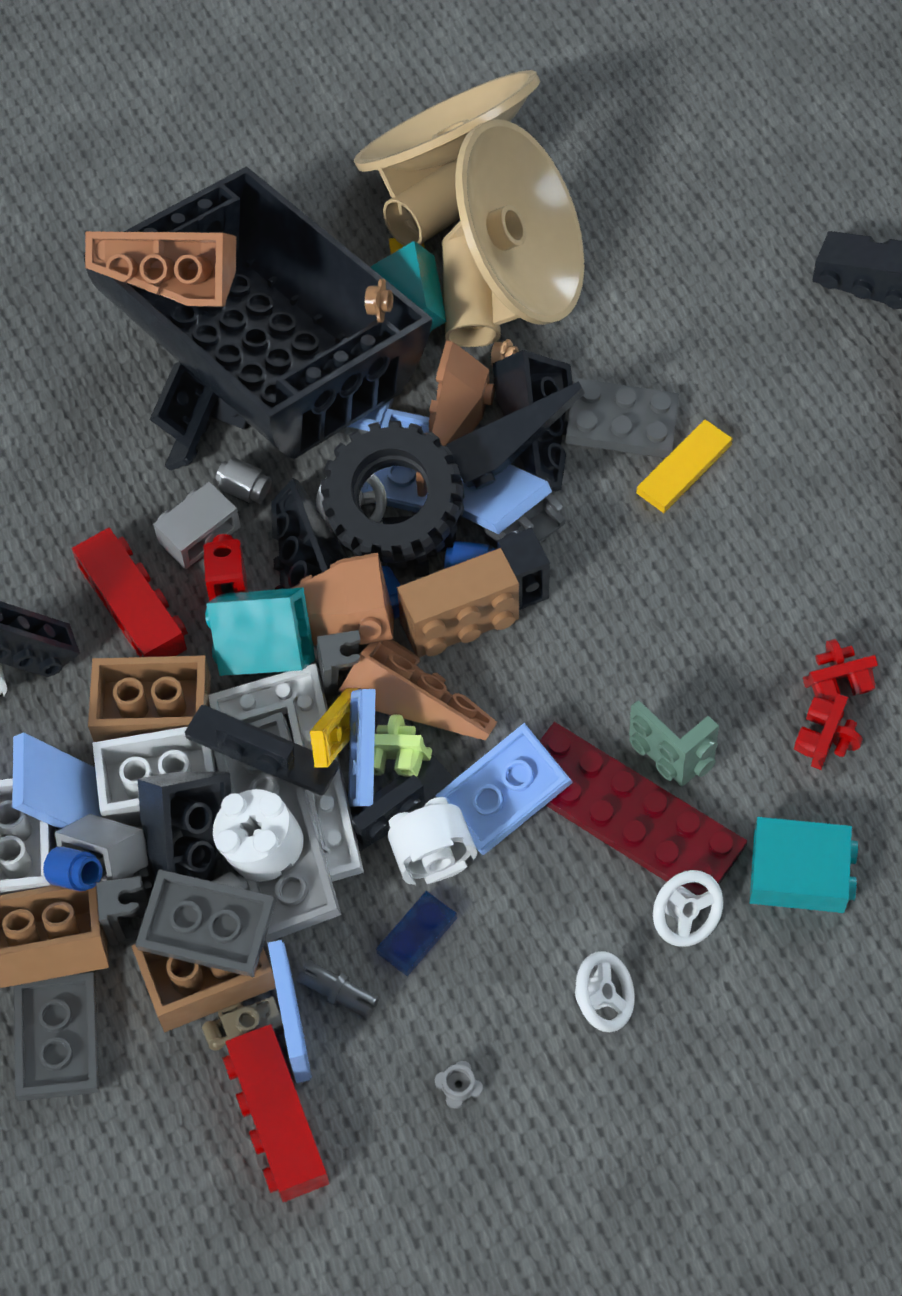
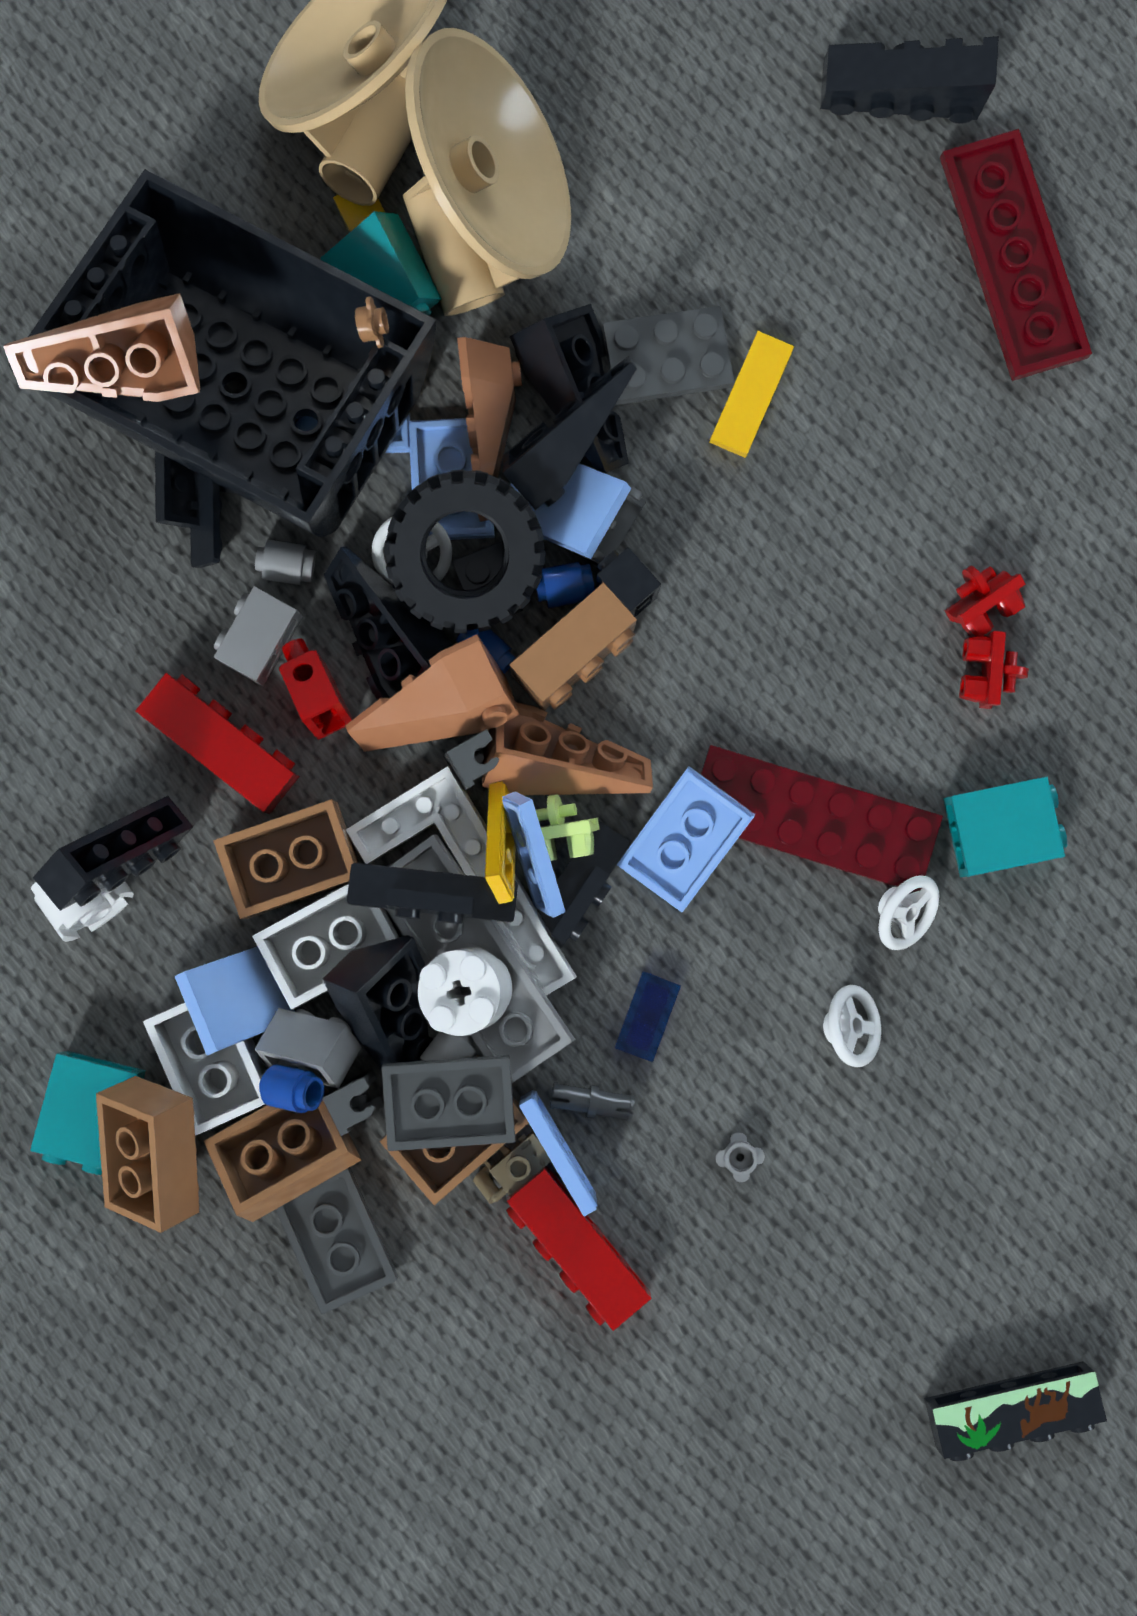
camera: 25 degrees left, 25 degrees up
(260, 631) = (378, 752): teal brick -> none
(431, 842) = (636, 929): white brick -> none
(502, 350) = (515, 315): light nougat plate -> none
(674, 756) = (871, 744): sand green bracket -> none

